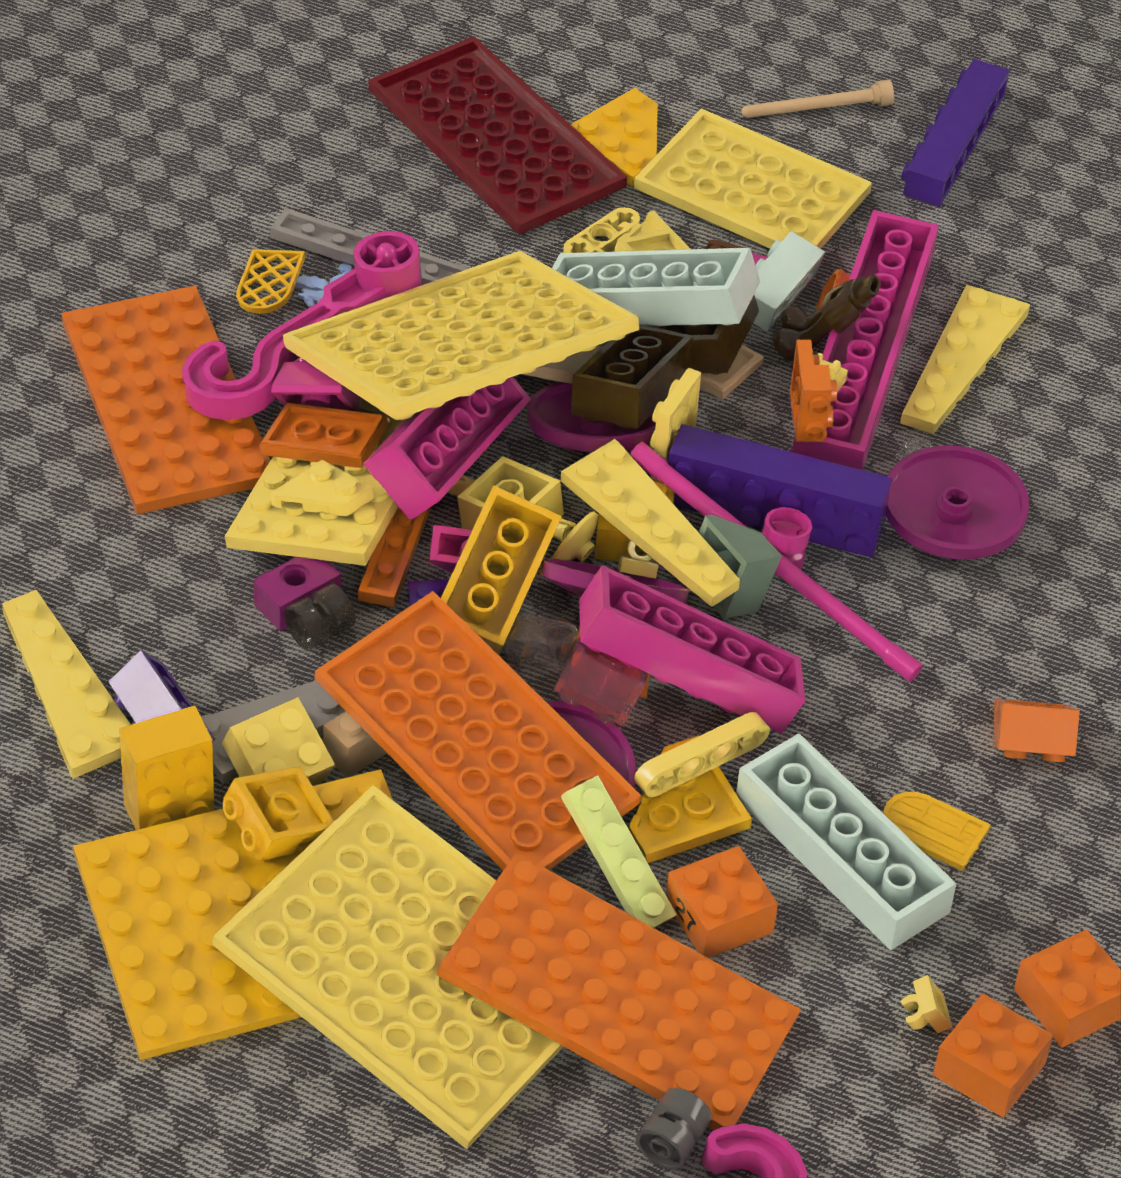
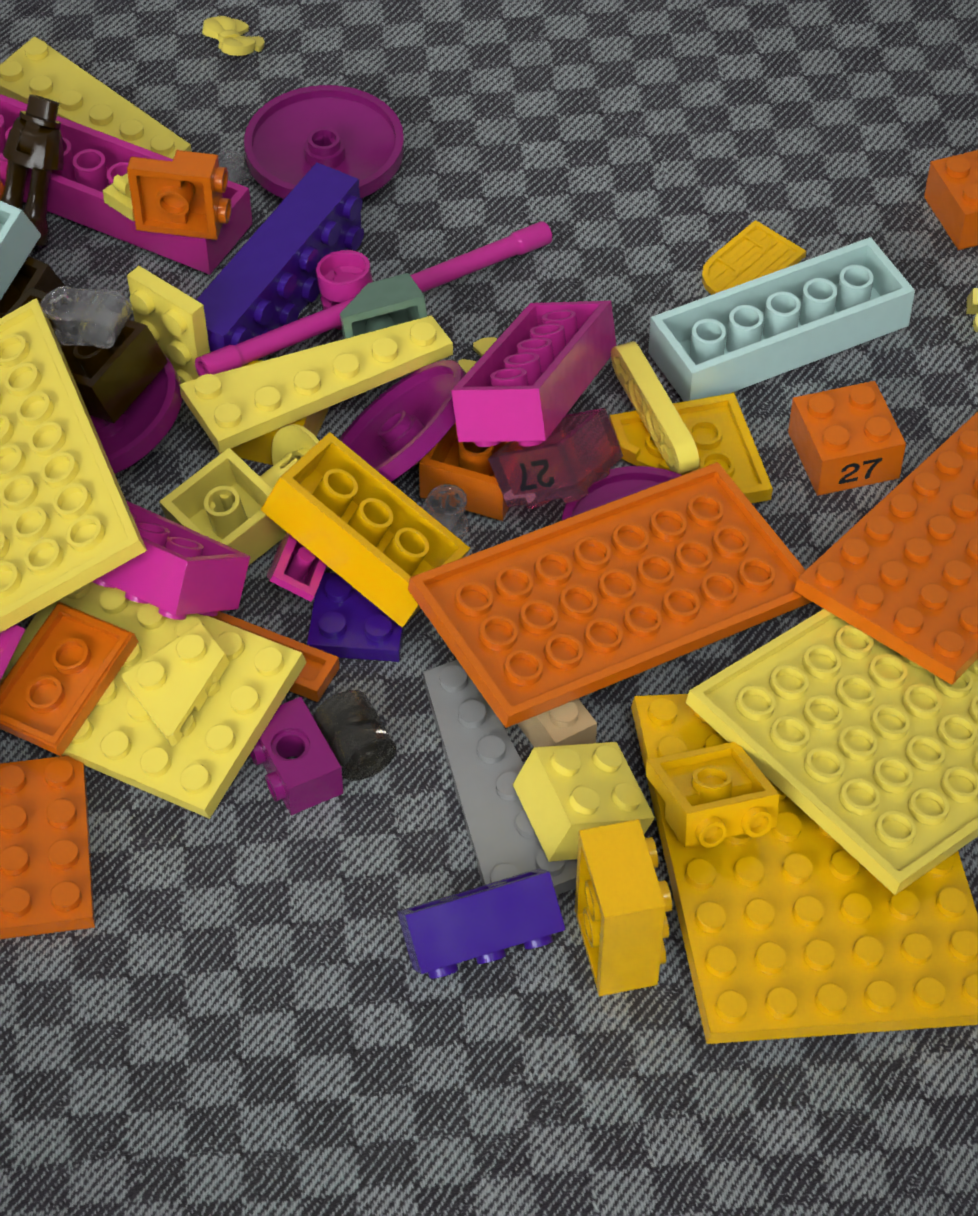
camera: 75 degrees left, 5 degrees up
(70, 691) = (432, 1025): light yellow wing -> none
(617, 853) = (787, 501): yellowish green plate -> none
(635, 351) = (87, 315): none -> clear piece
(637, 564) = (341, 419): light yellow tile -> none
(1035, 729) = (641, 154): orange slope -> none
(1090, 421) = (228, 34): none -> light yellow piece

